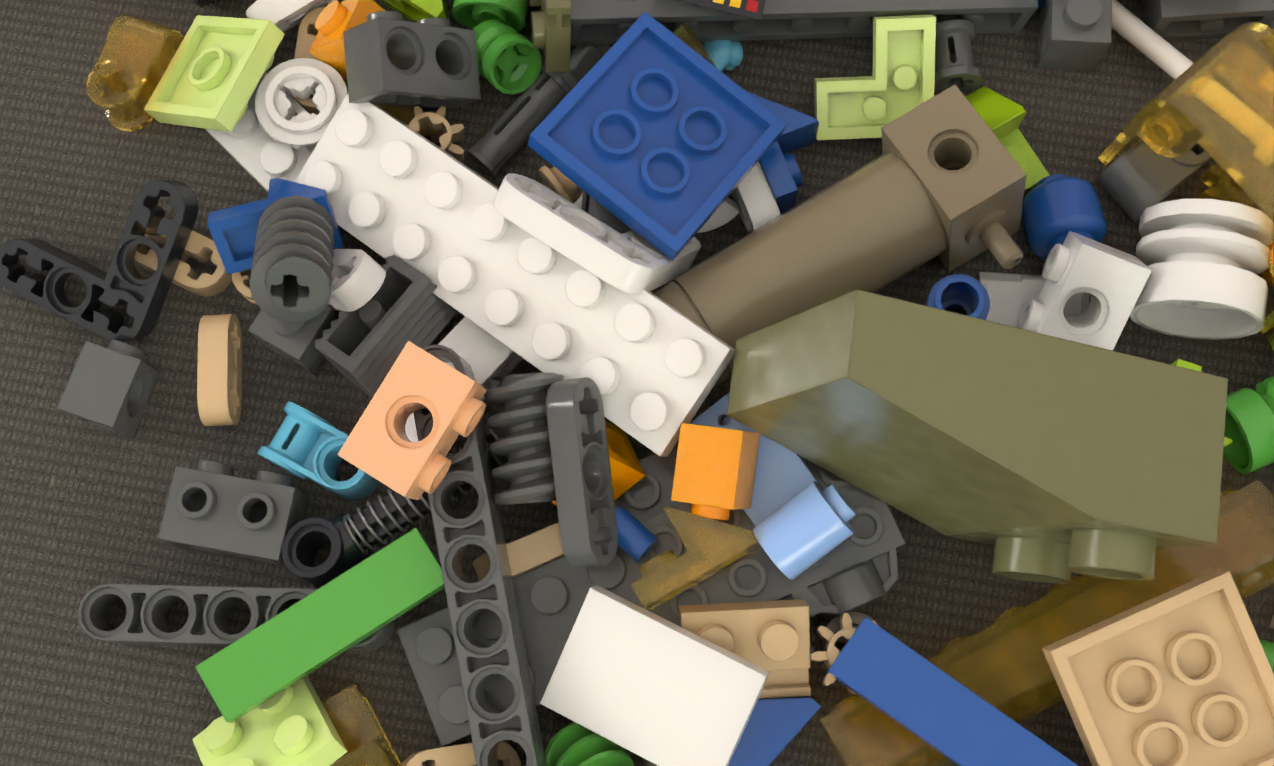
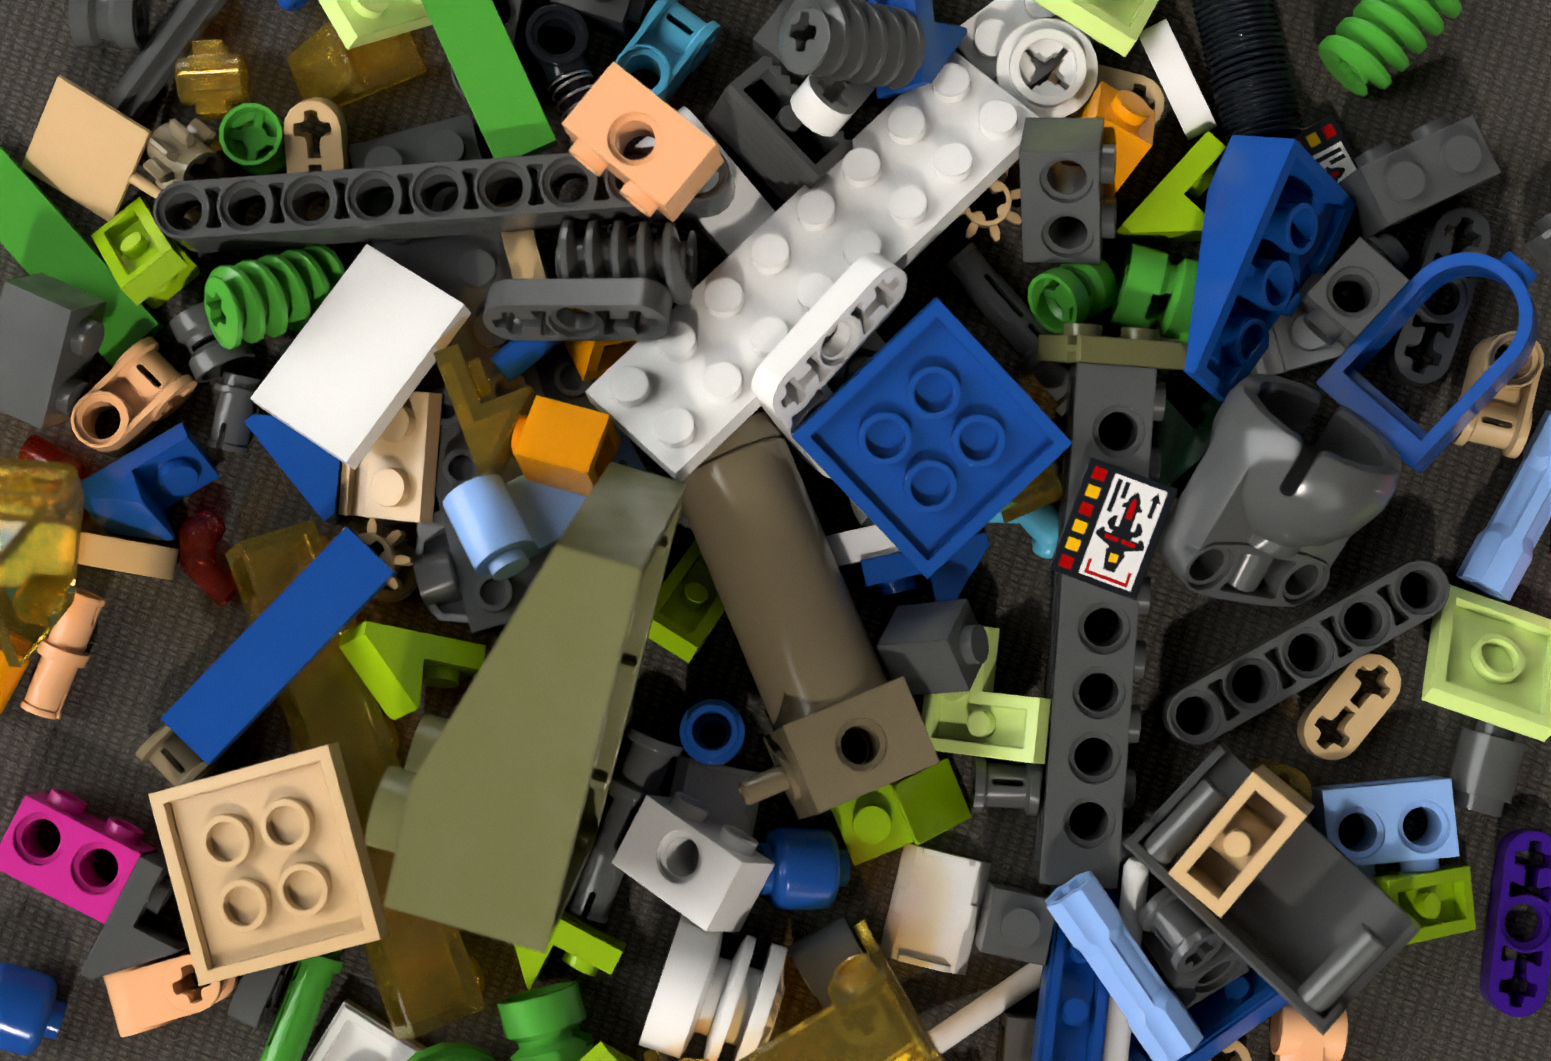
camera: 90 degrees right, 10 degrees up
(844, 117) = (934, 646): none -> dark grey brick
(949, 608) = (400, 660): none -> lime slope
(1072, 108) = (934, 909): none -> white piece

